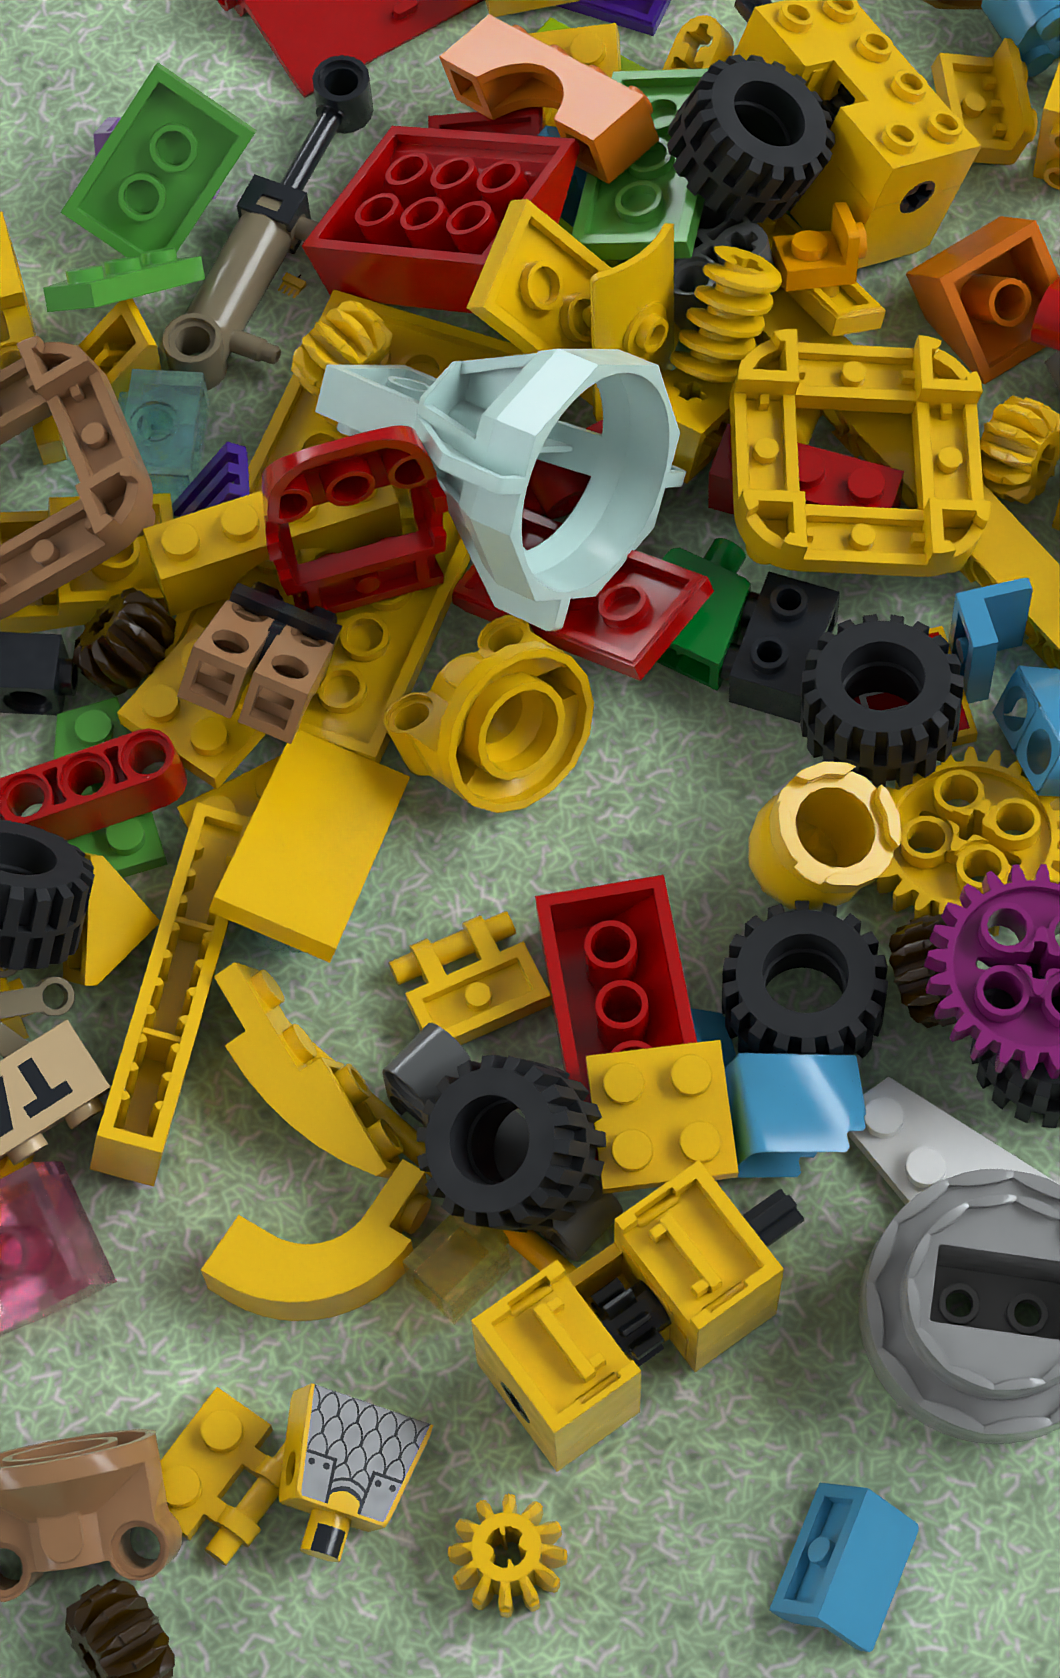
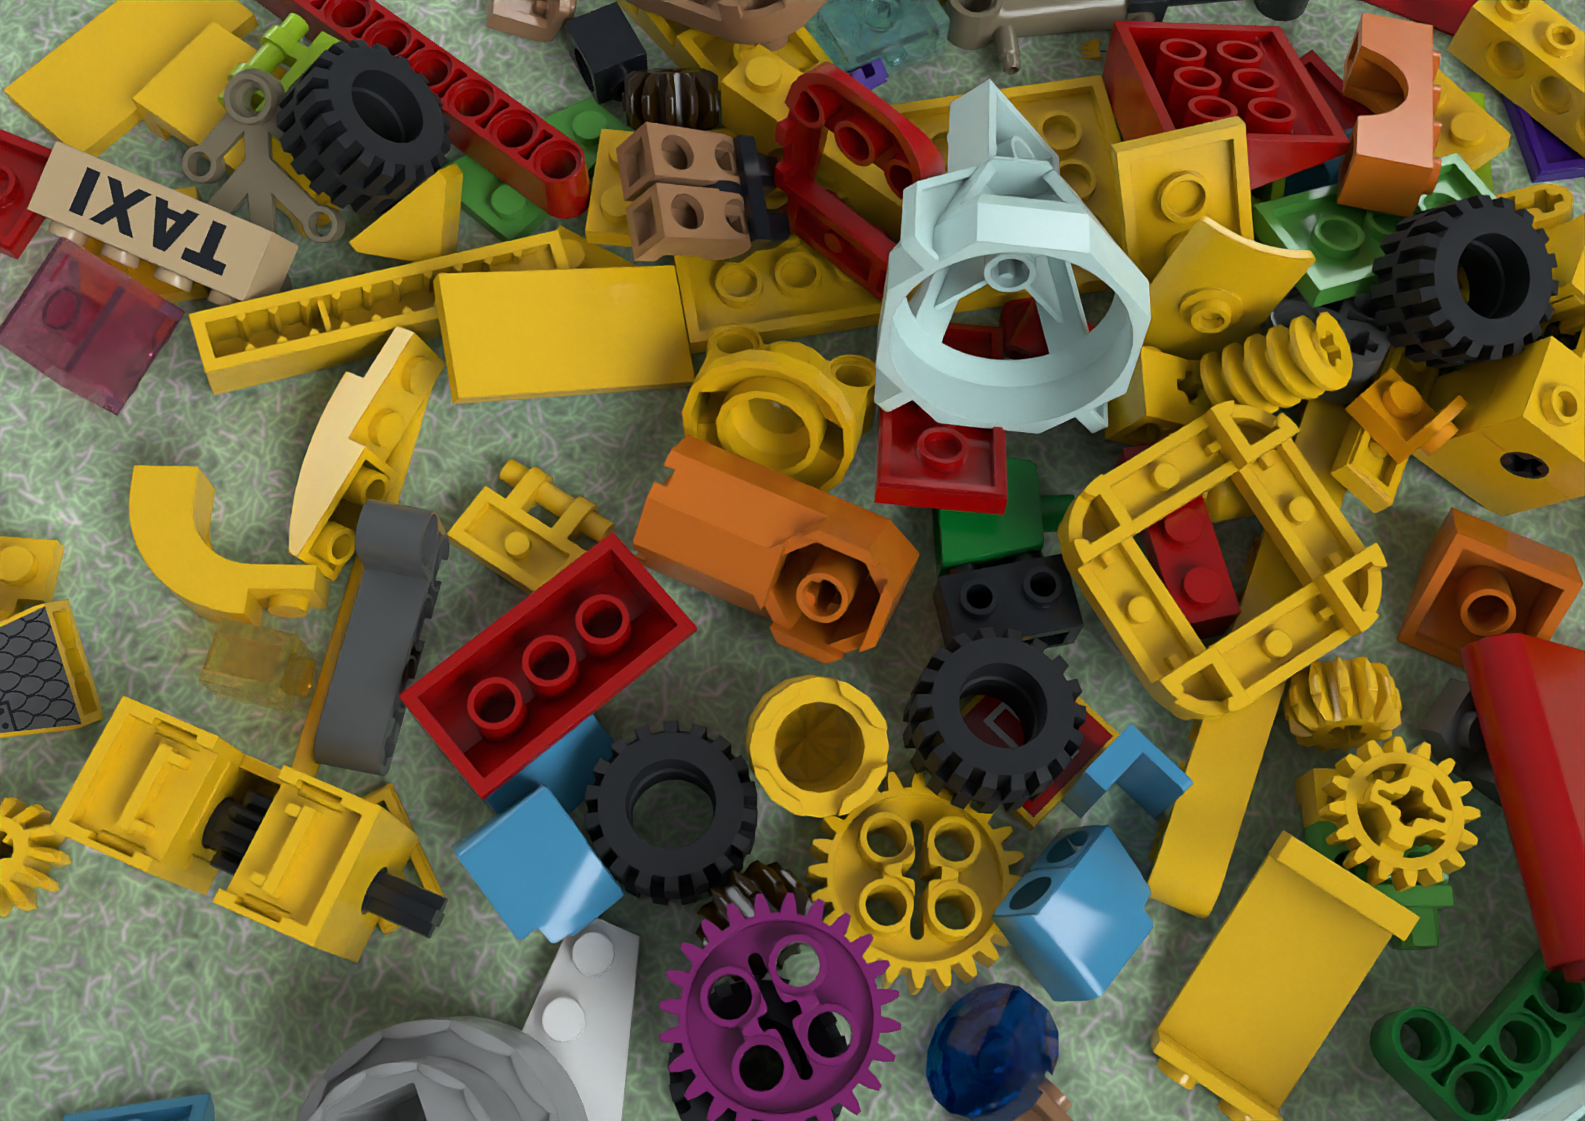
camera: 50 degrees right, 5 degrees up
(341, 338) = (1042, 93): yellow gear -> none
(464, 1132) = (342, 640): black tyre -> none
(627, 784) = (776, 549): none -> orange brick
(662, 1114) = (448, 755): yellow plate -> none

